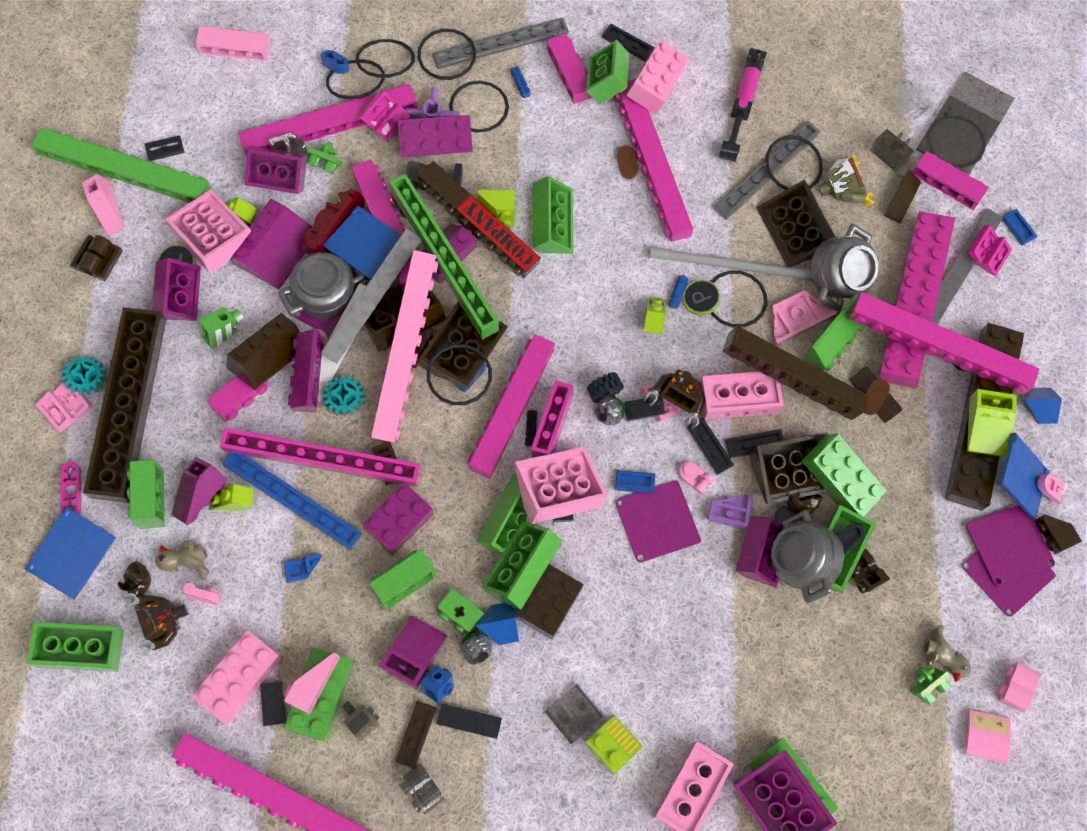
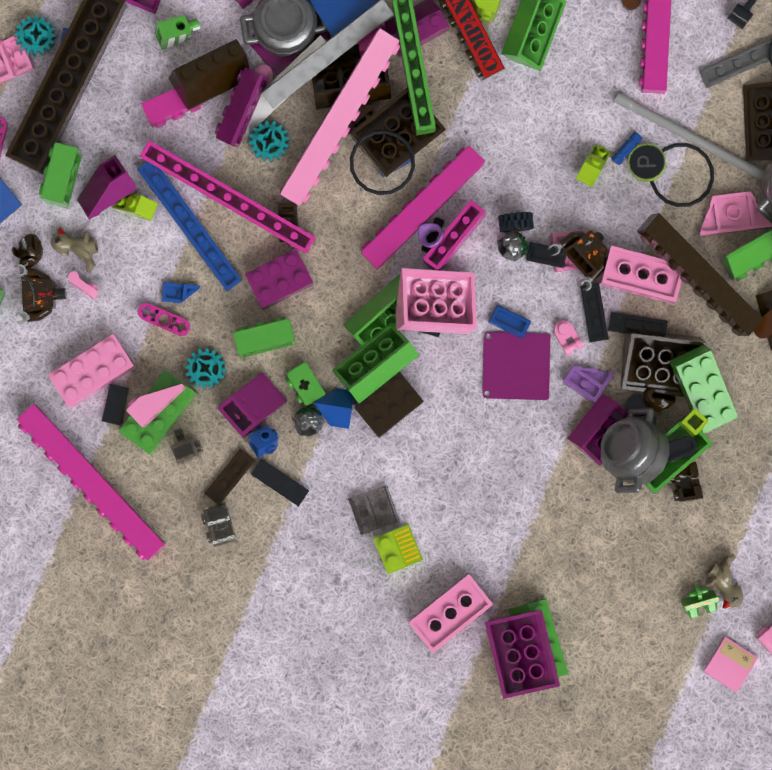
camera: 25 degrees right, 15 degrees up
(281, 593) = (148, 318): none -> dark pink beam
(348, 640) = (212, 362): none -> teal gear
(523, 422) = (425, 229): none -> medium lavender piece
(851, 507) = (693, 422): none -> lime brick

